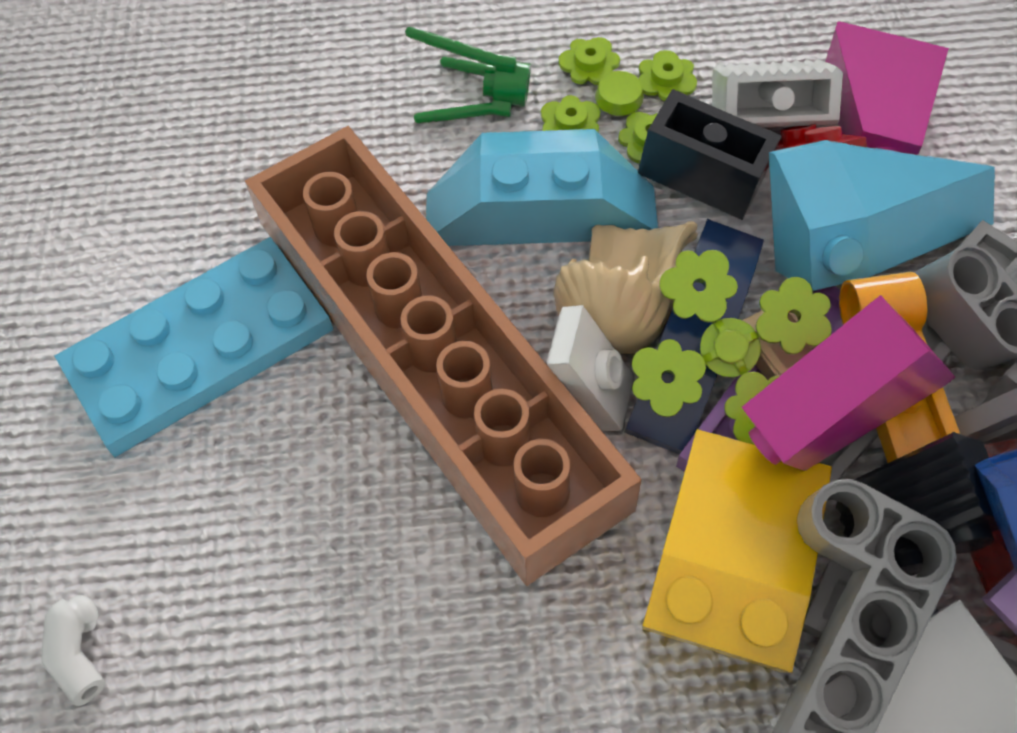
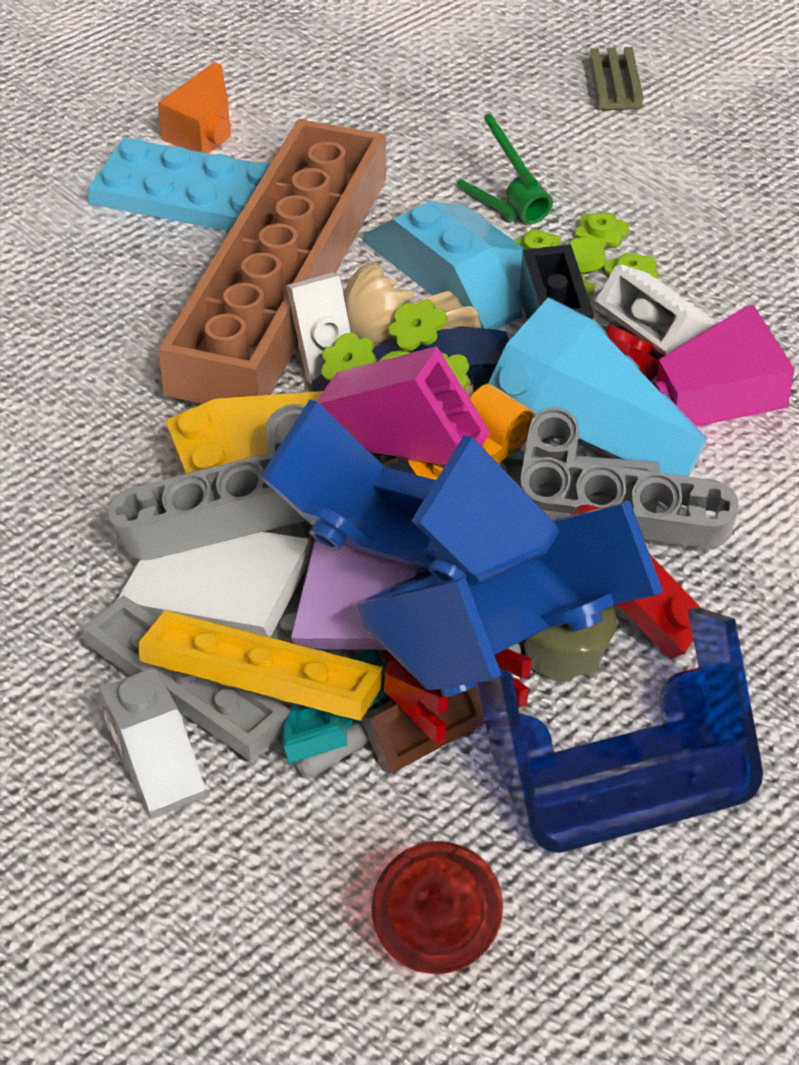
camera: 50 degrees right, 15 degrees down
(96, 258) = (197, 112): none -> orange slope

